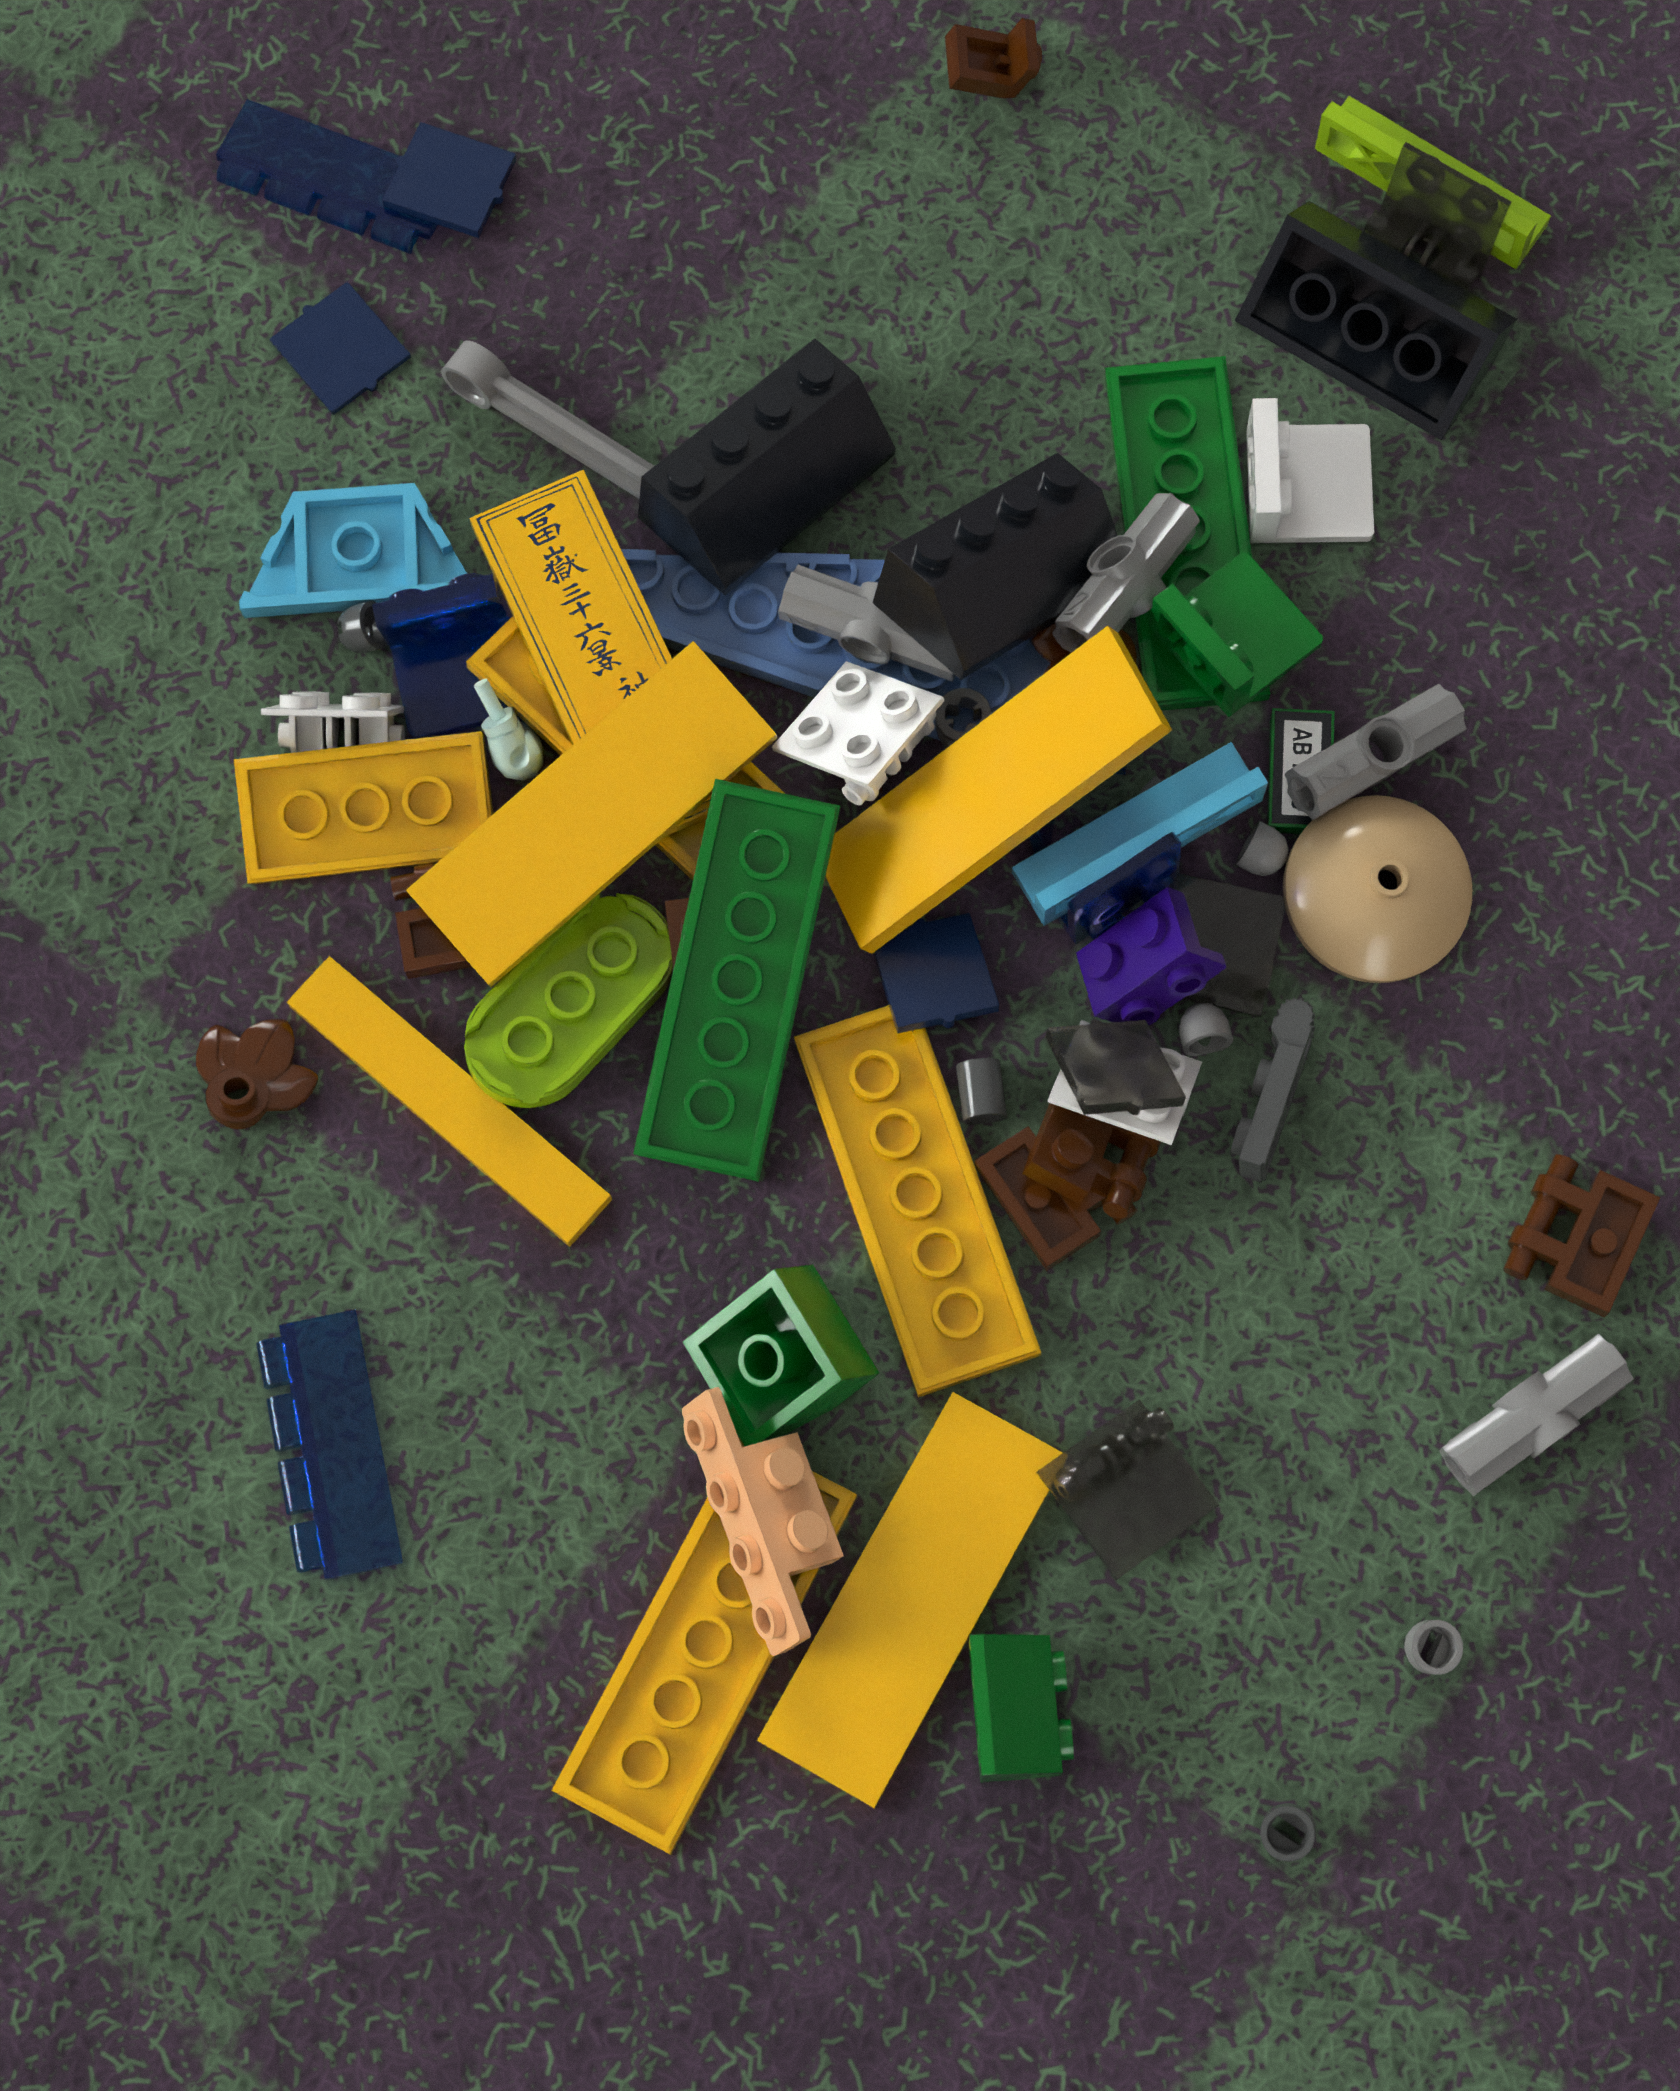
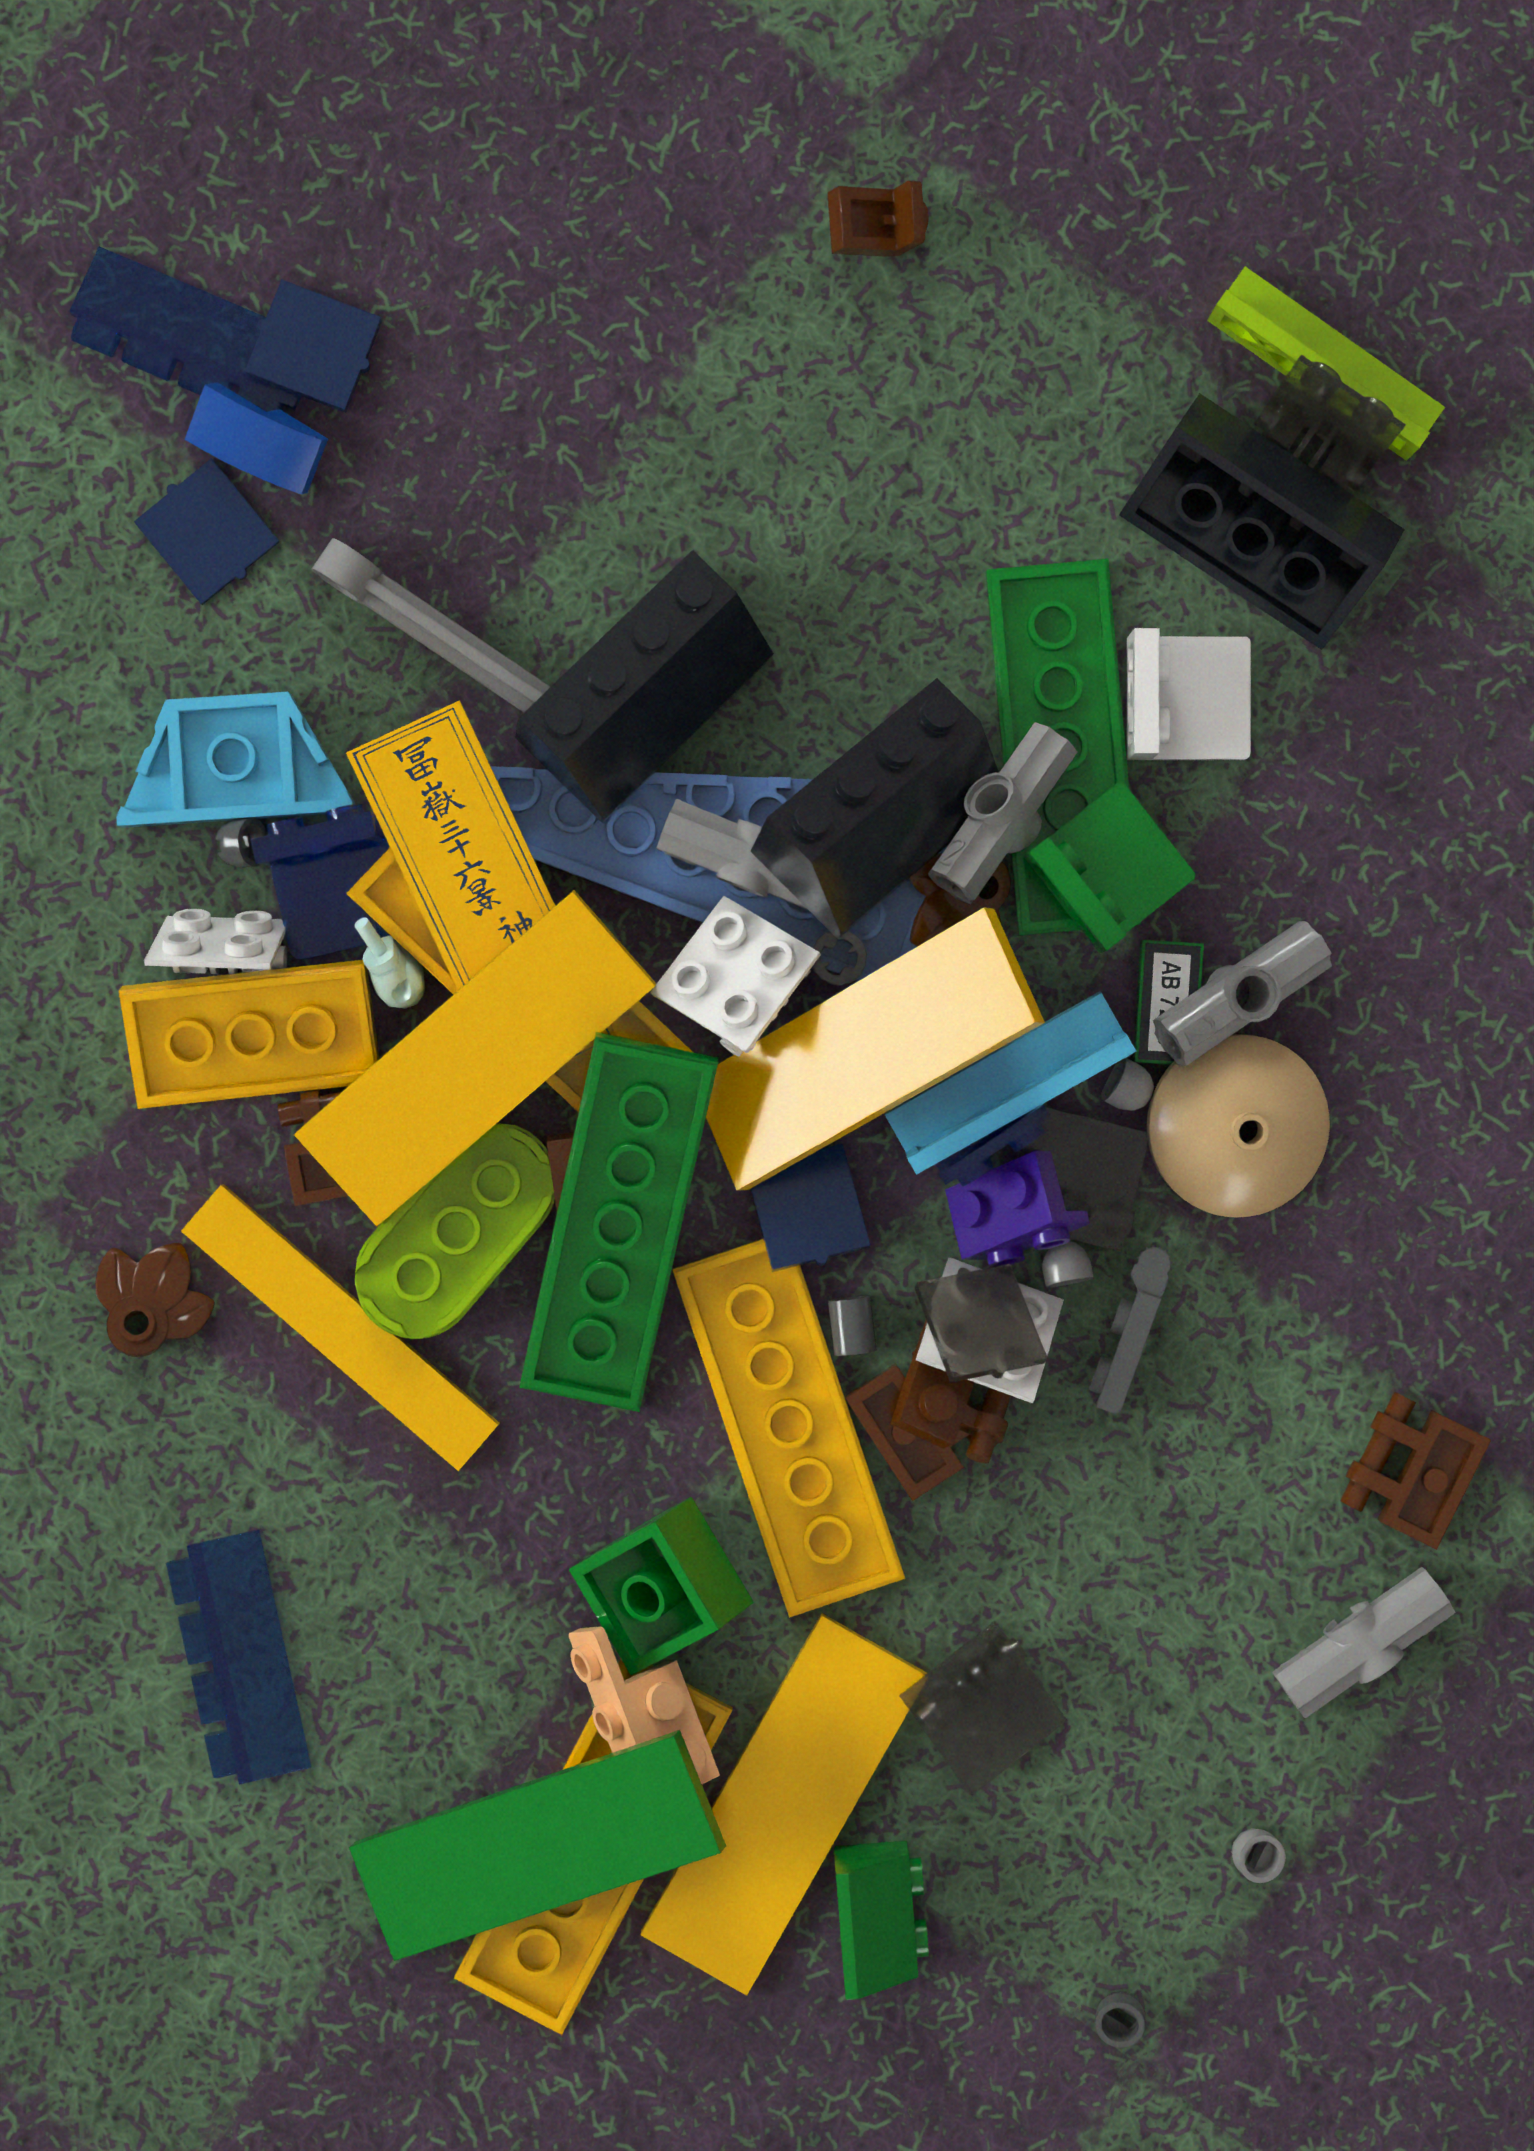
camera: 10 degrees left, 15 degrees up
(391, 257) = (256, 440): none -> blue slope
(644, 1628) = (538, 1846): none -> green tile

